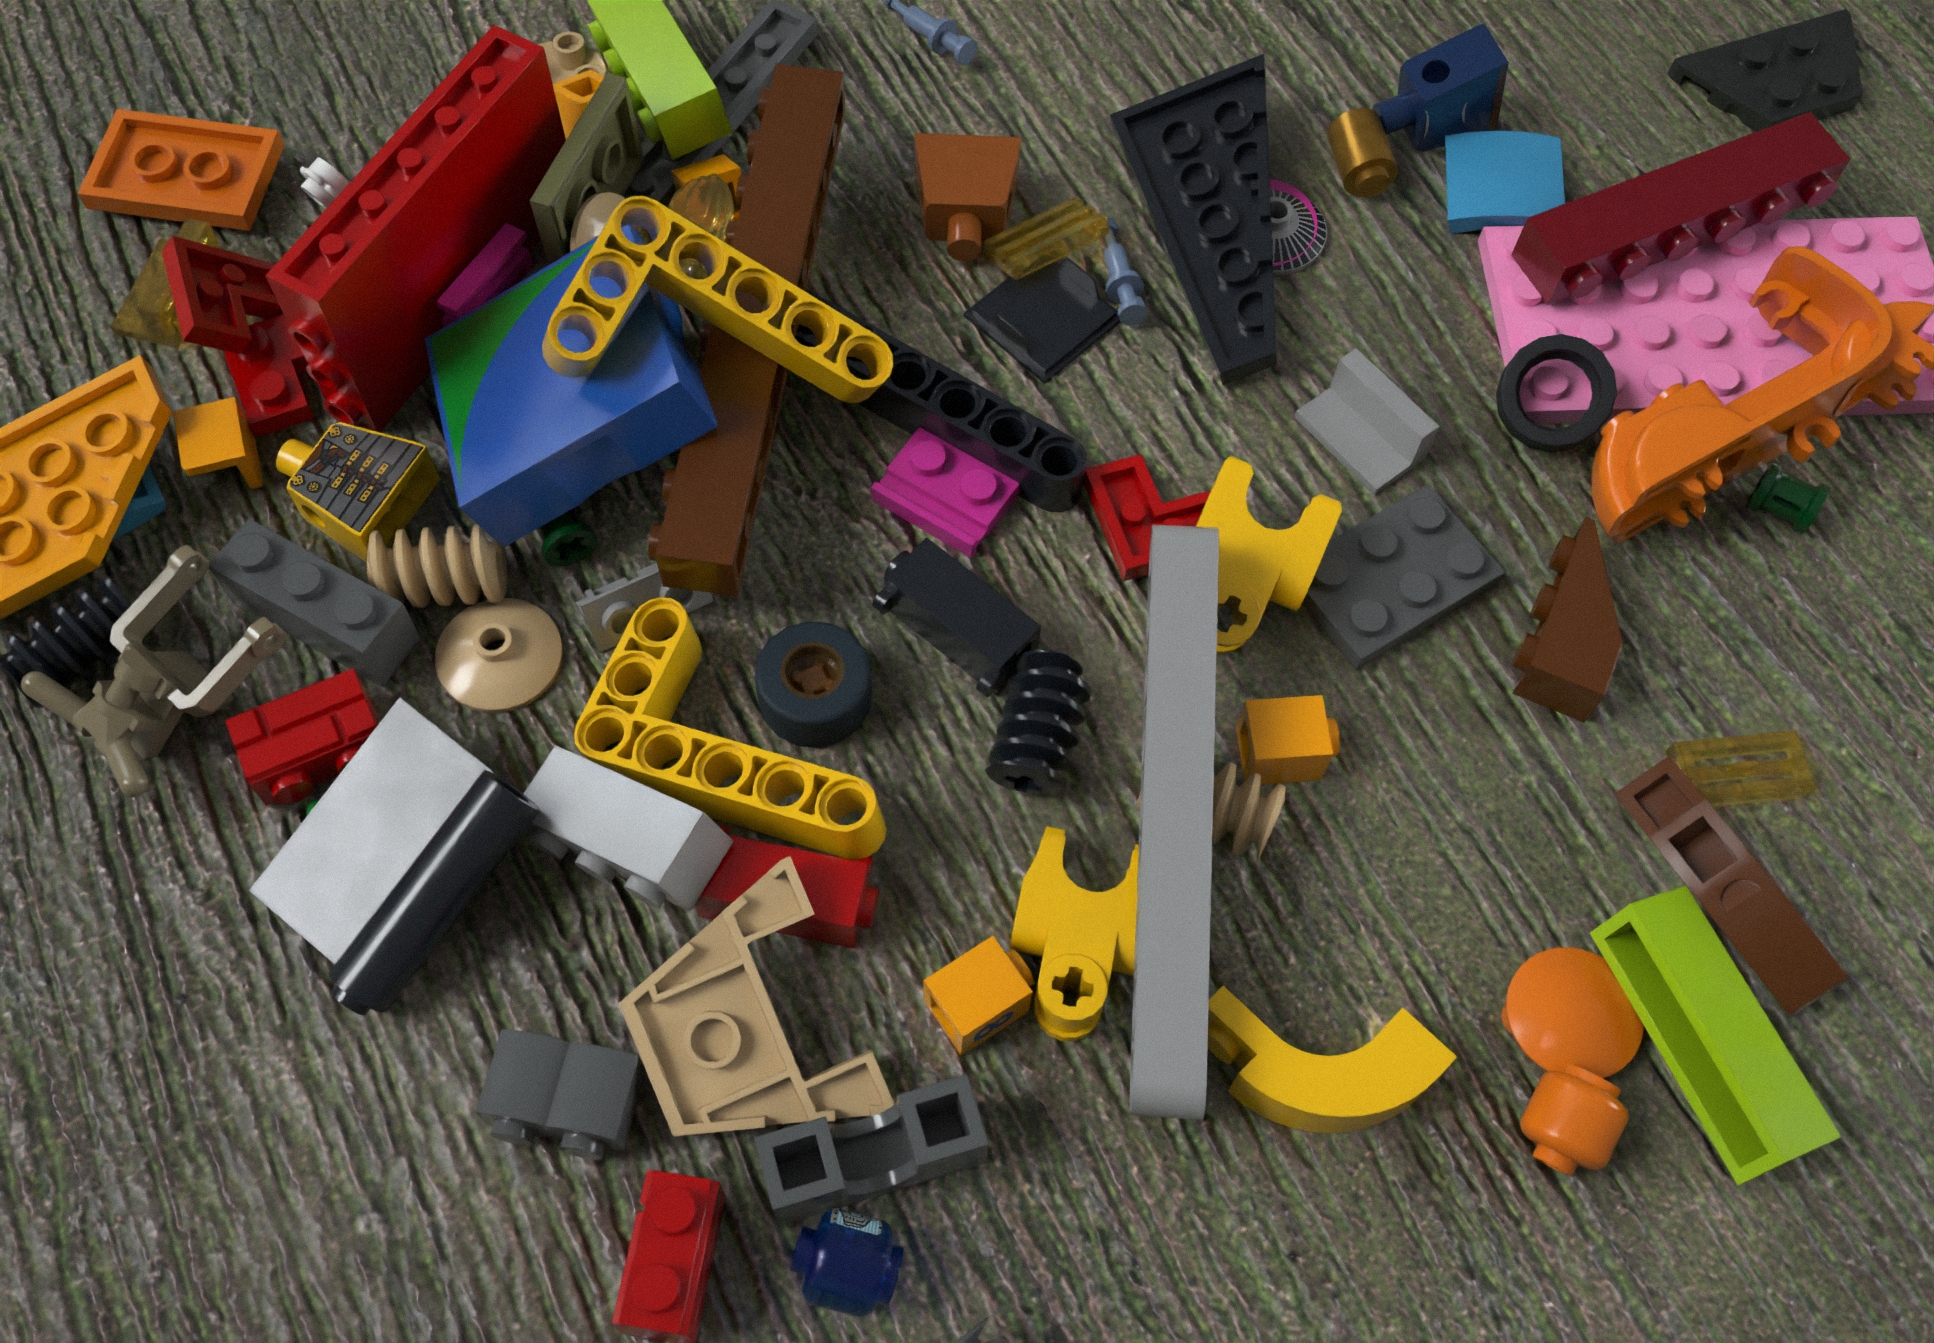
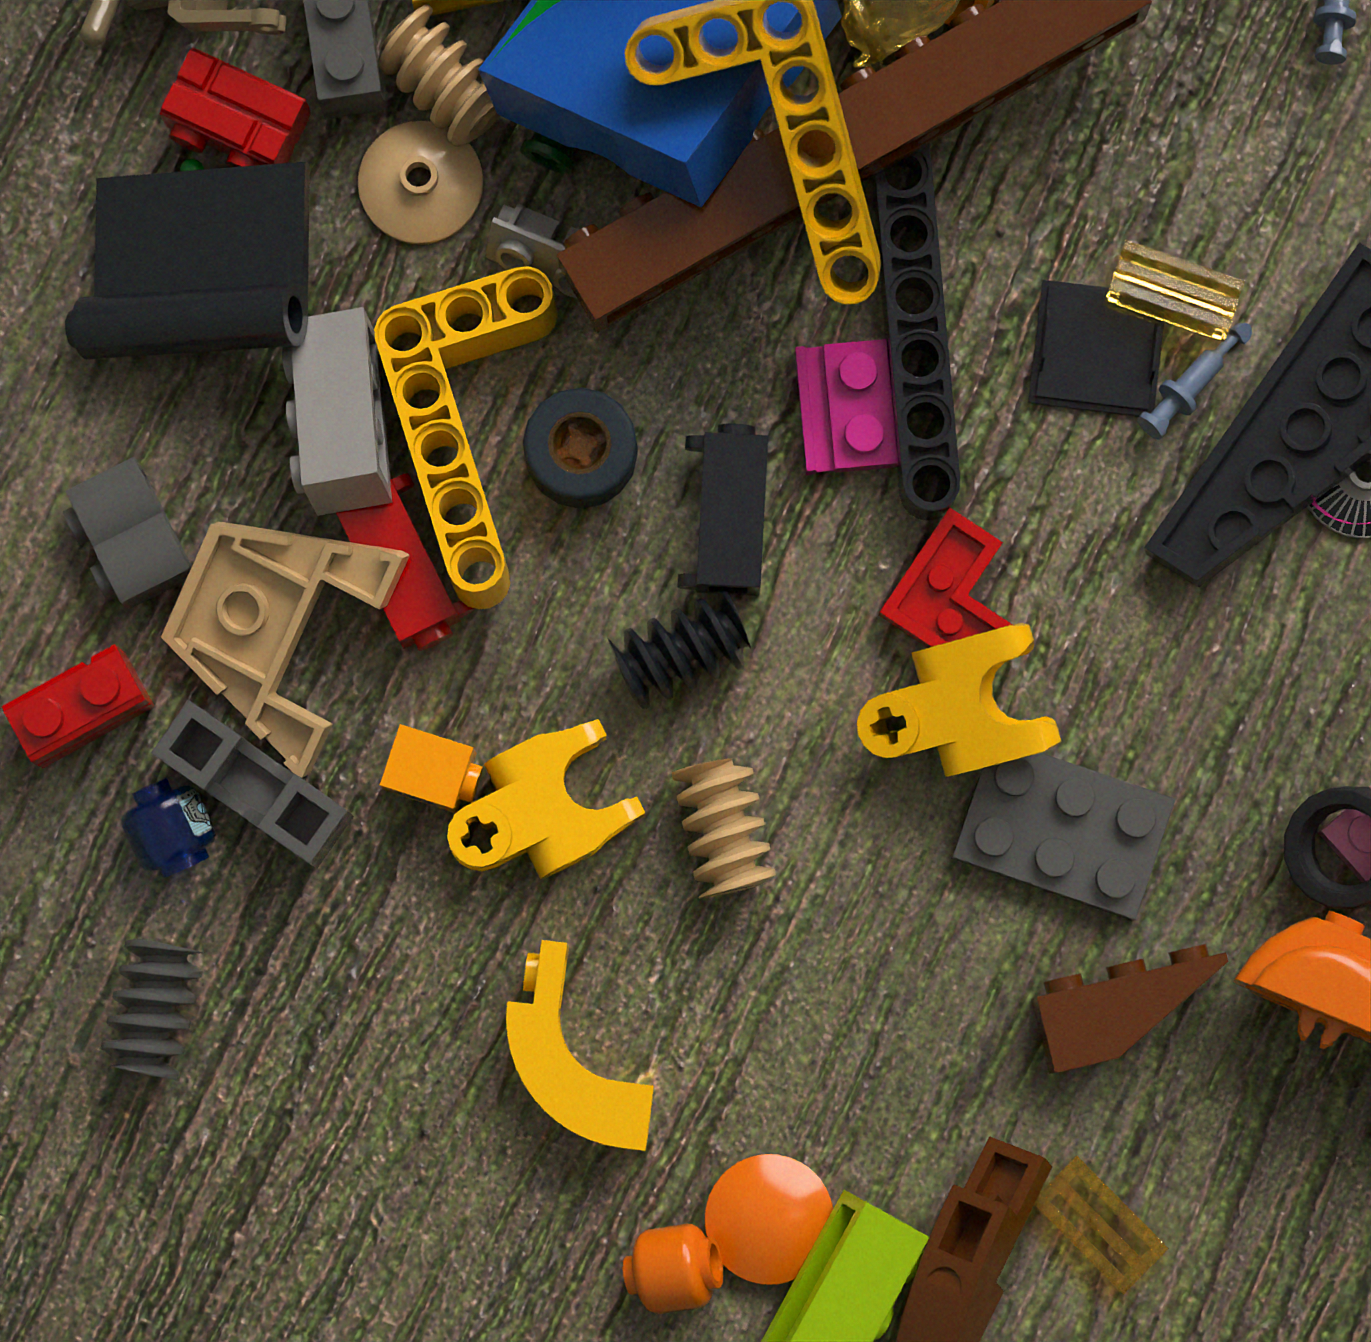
camera: 55 degrees right, 20 degrees up
(965, 188) = (1164, 184): dark orange torso -> none
(1175, 827) = (669, 807): light grey beam -> none
(1286, 739) = (826, 848): light orange brick -> none
(1368, 423) = (1195, 706): light grey panel -> none

